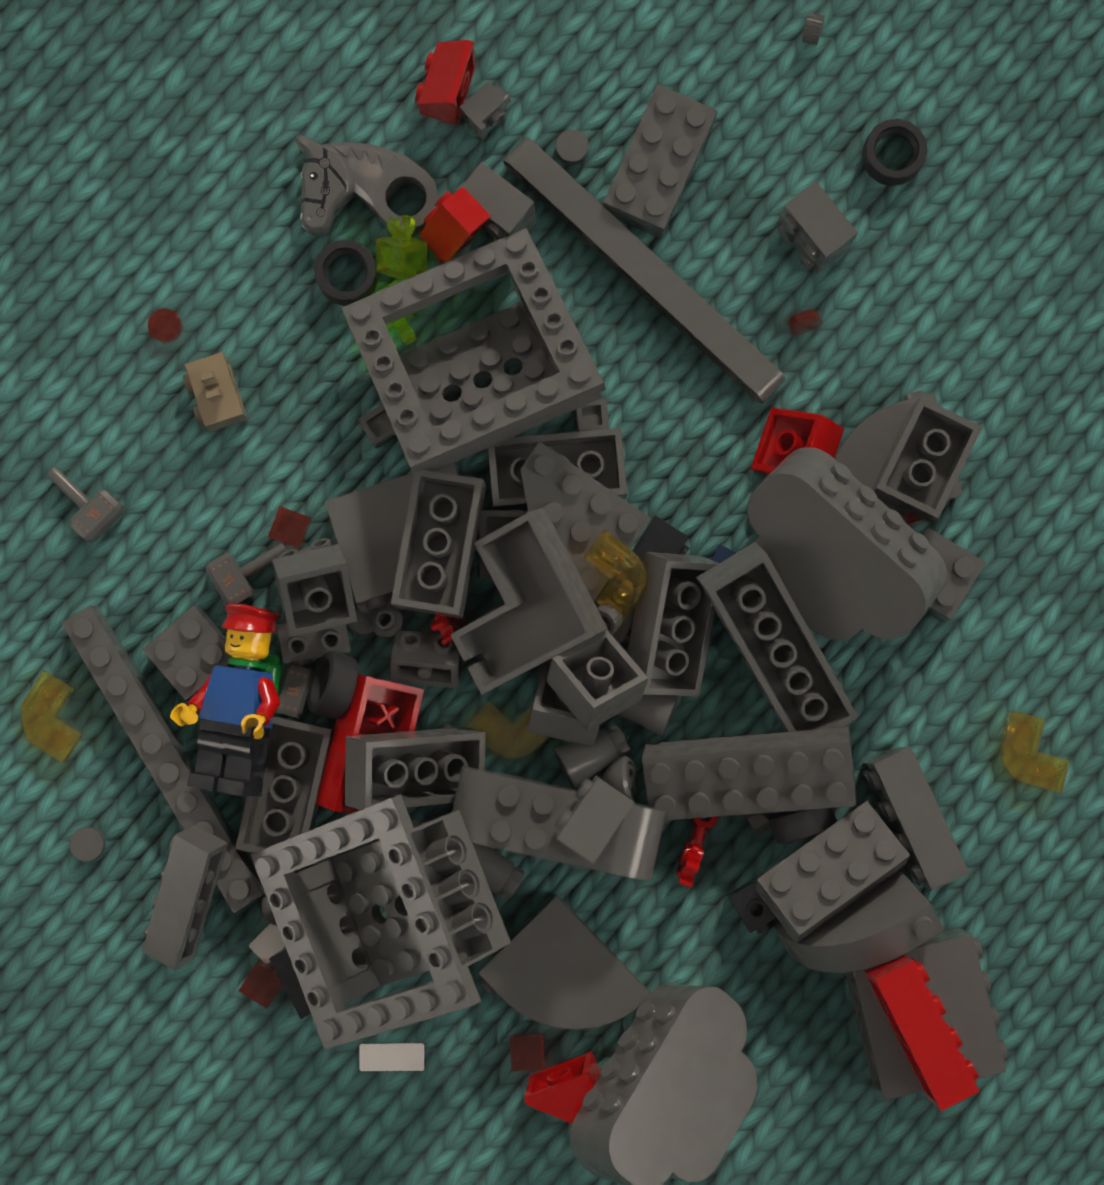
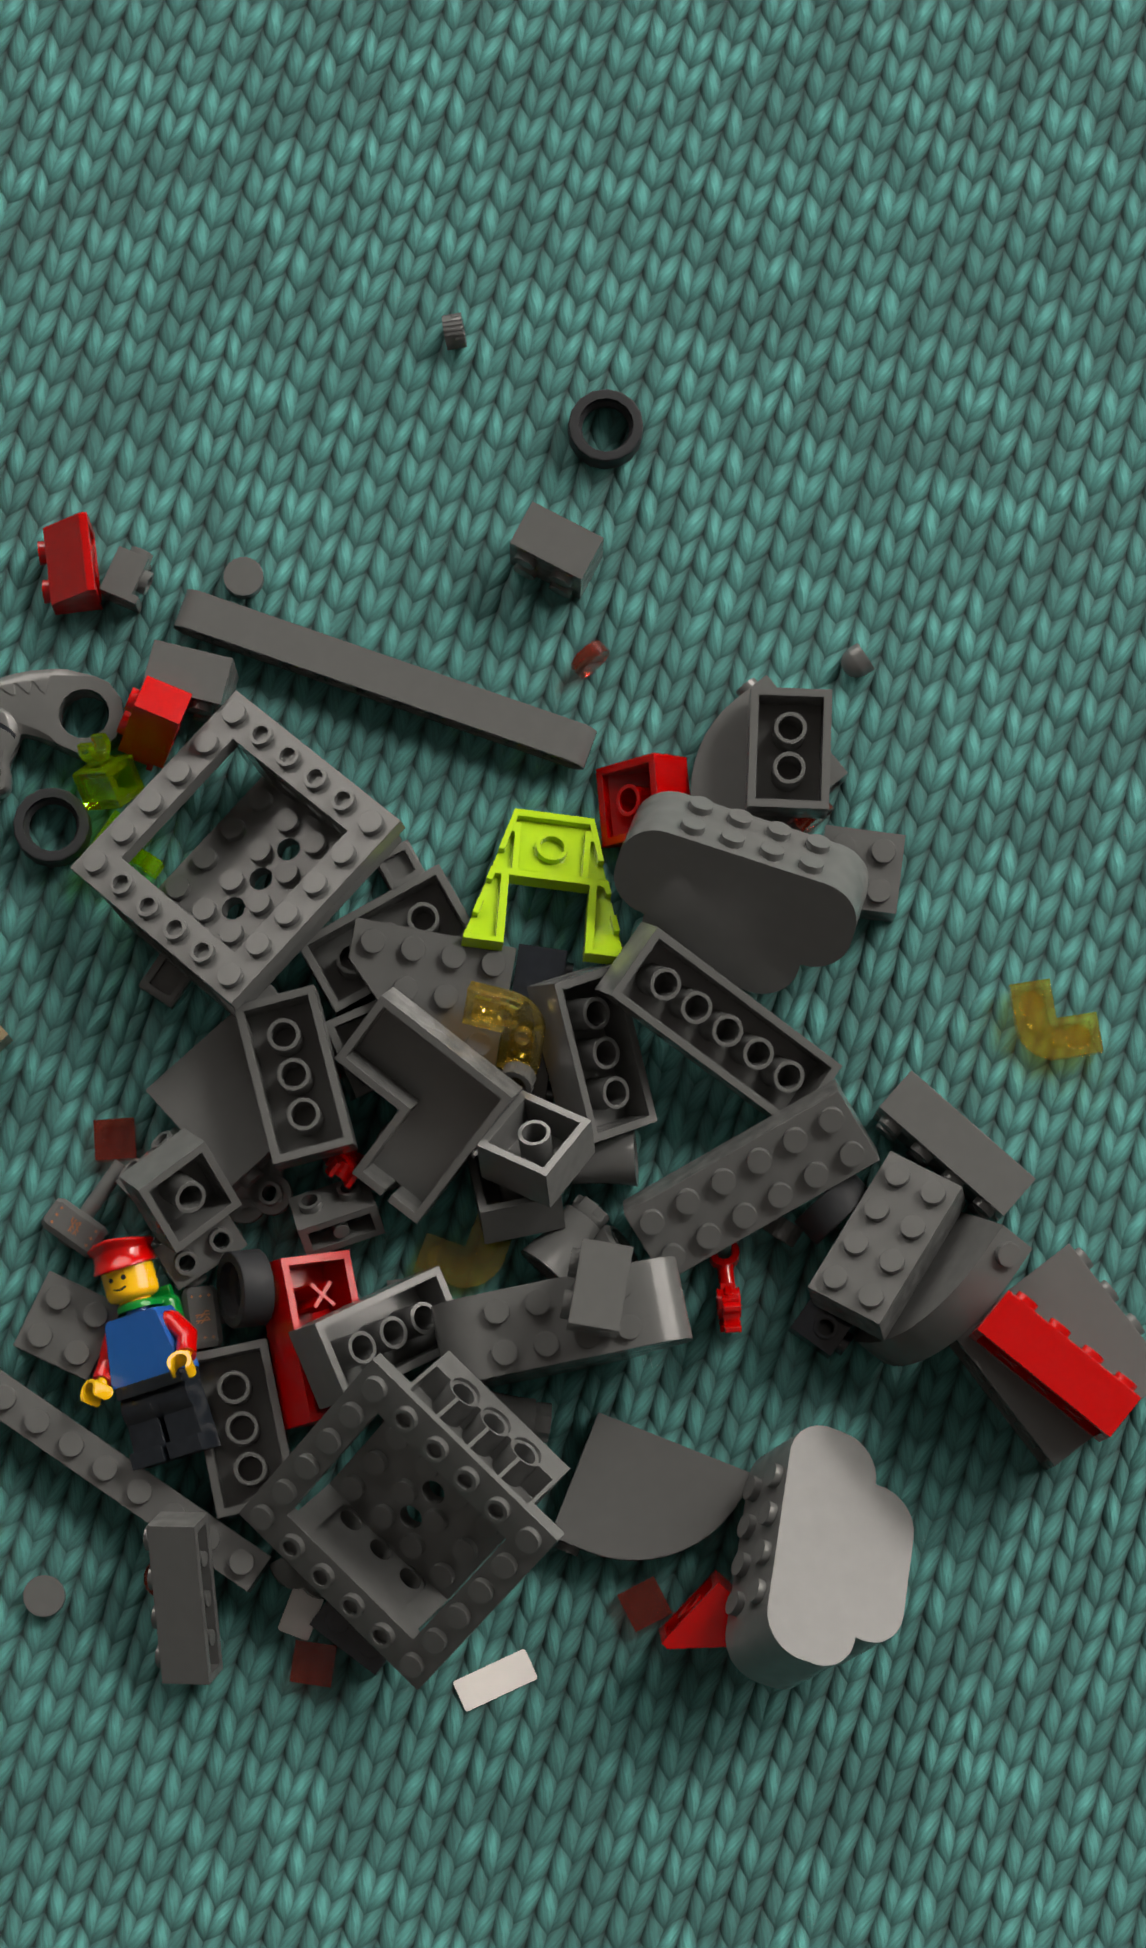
camera: 30 degrees left, 5 degrees down
(659, 161) = (349, 552): dark grey brick -> none
(711, 459) = (548, 854): none -> lime wing
(1005, 412) = (855, 662): none -> dark grey hinge

